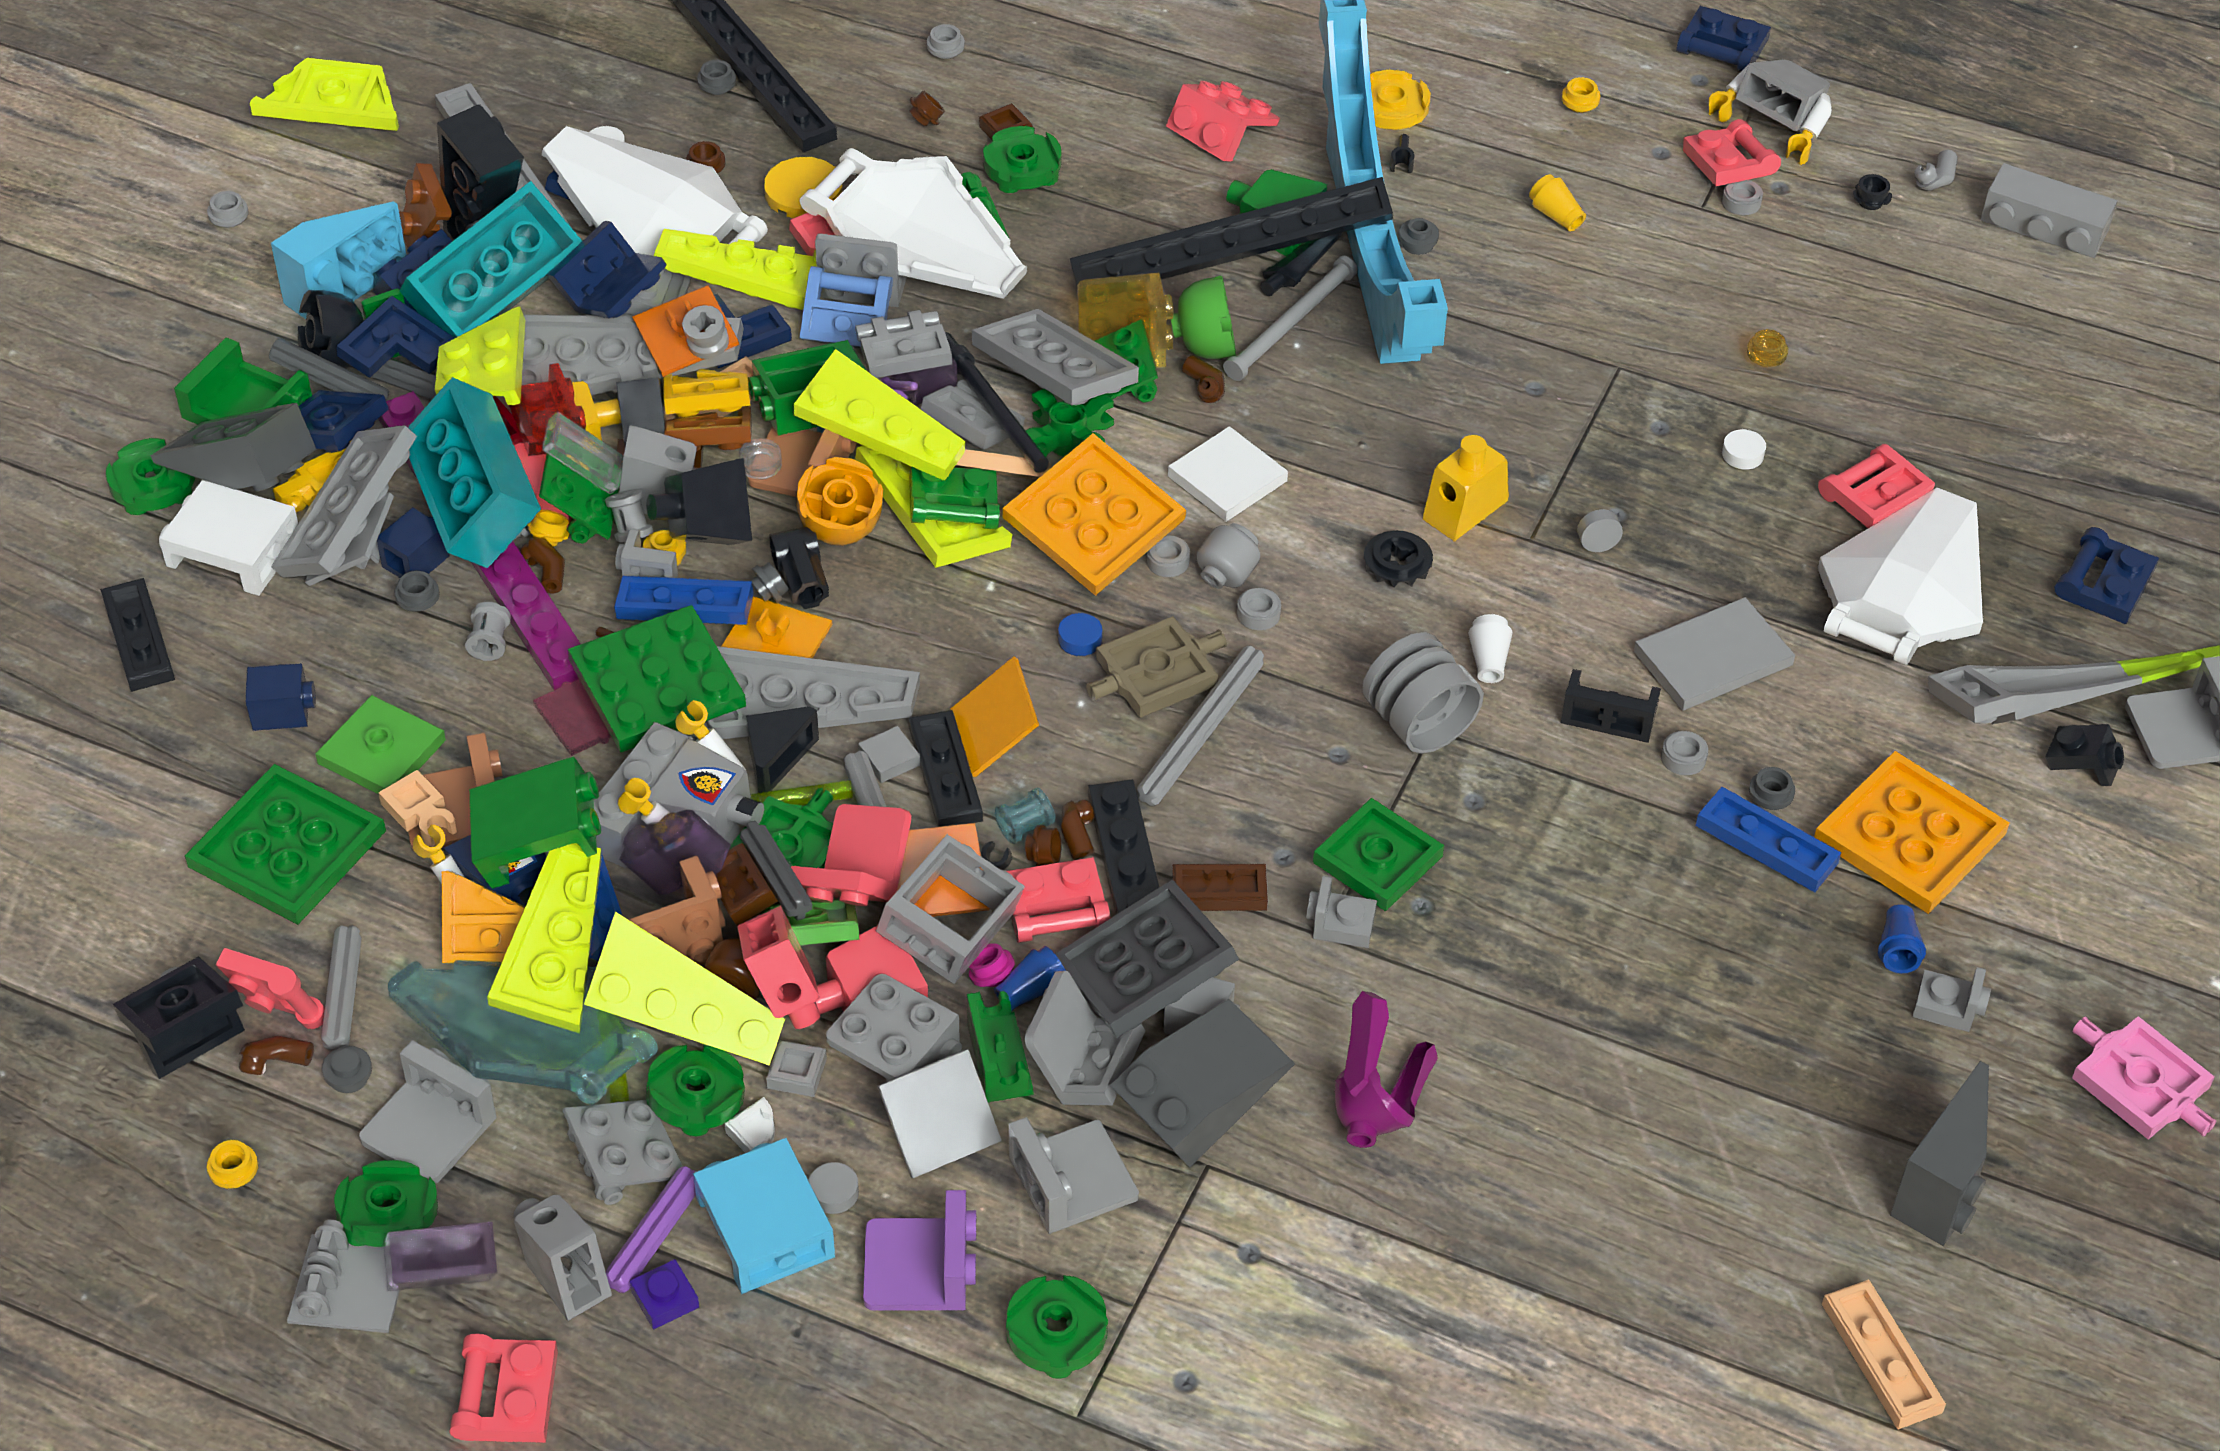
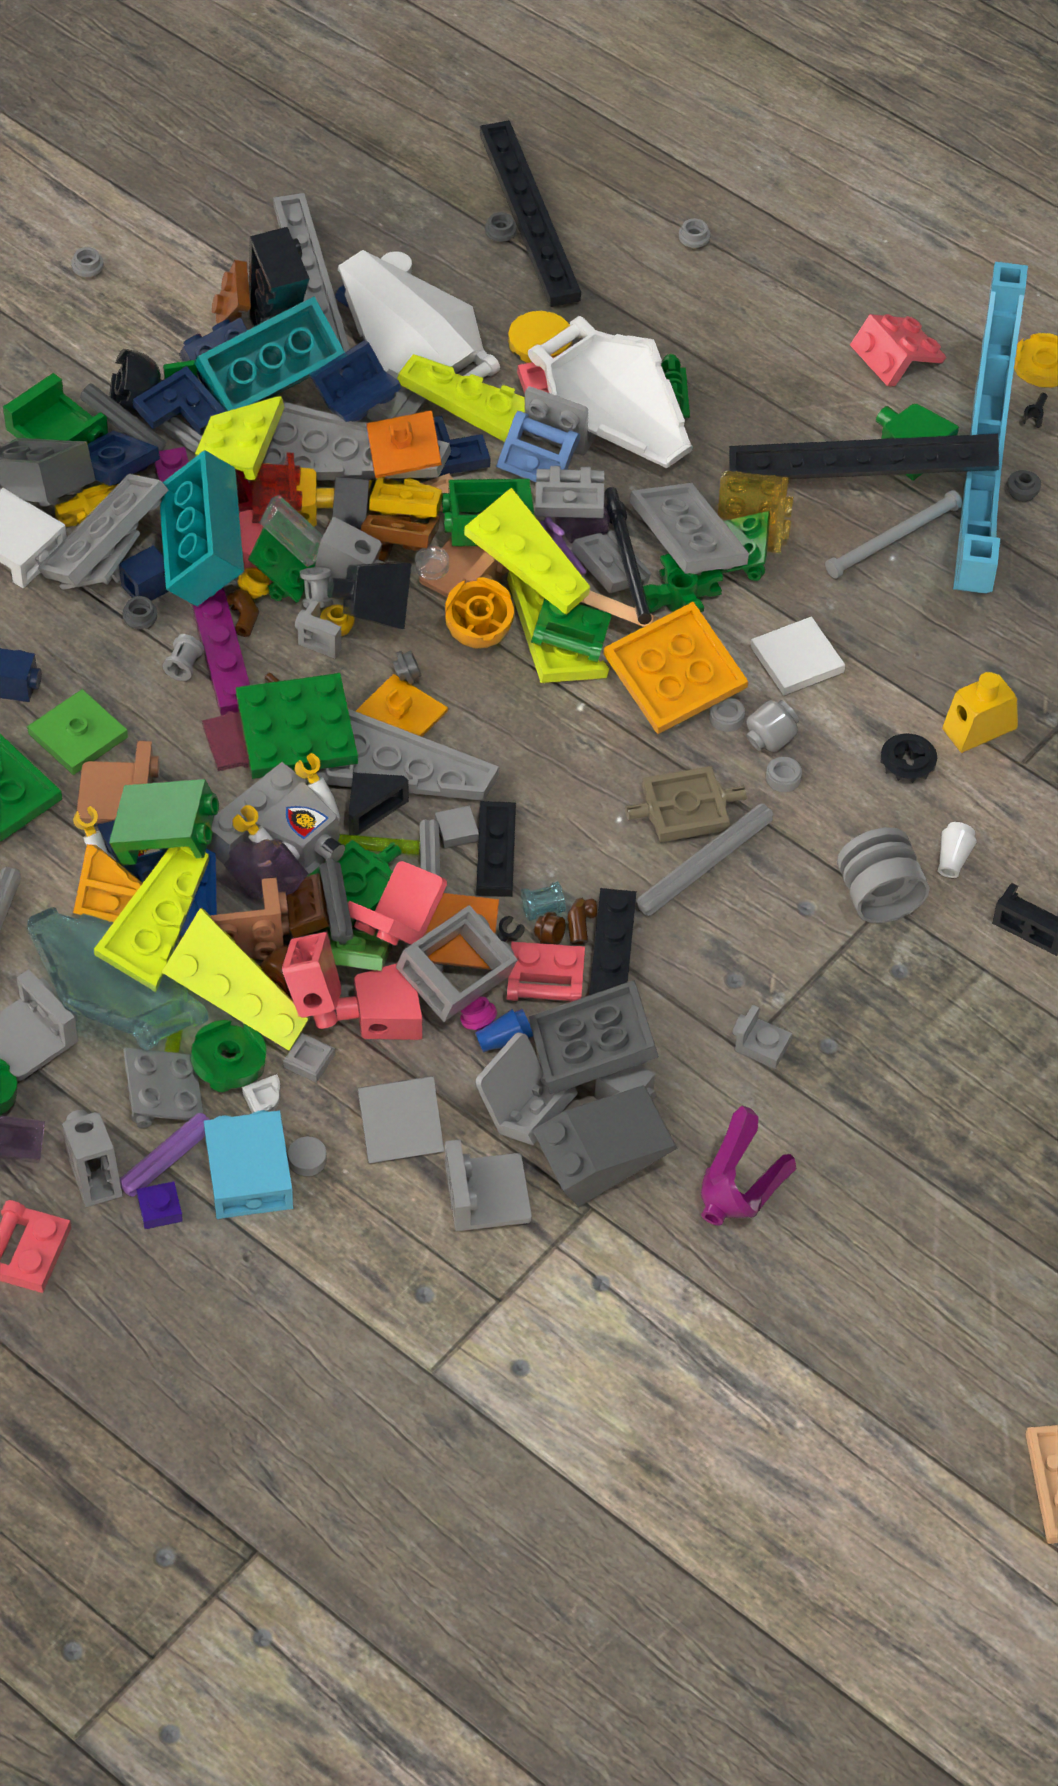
camera: 15 degrees right, 5 degrees up
(332, 95) = (194, 180): neon yellow wing -> none
(338, 253) = (157, 321): medium azure slope -> none
(417, 802) = (88, 785): light nougat plate -> none
(707, 154) = (471, 294): reddish brown plate -> none
(712, 599) = (356, 669): blue plate -> none
(713, 340) = (422, 456): light grey wheel -> none
(799, 559) = (436, 651): black piece -> none
(895, 1029) = (387, 1047): light grey bracket -> none
(921, 1259) = (352, 1227): medium lavender bracket -> none
(926, 109) = (659, 290): reddish brown plate -> none
(995, 716) = (544, 816): light orange piece -> none
(998, 1049) = (462, 1067): green hinge -> none
(1002, 118) = (720, 317): reddish brown tile -> none
(1038, 168) = (732, 362): green plate -> none
(1056, 1351) = (437, 1322): green plate -> none
(1080, 634) = (635, 763): blue tile -> none
(1205, 320) = (821, 523): bright green cylinder -> none
(1210, 379) = (810, 572): reddish brown arm -> none
(1223, 886) = (675, 993): reddish brown plate -> none
(1294, 266) = (912, 490): black bar -> none
(1378, 854) = (806, 996): green plate -> none

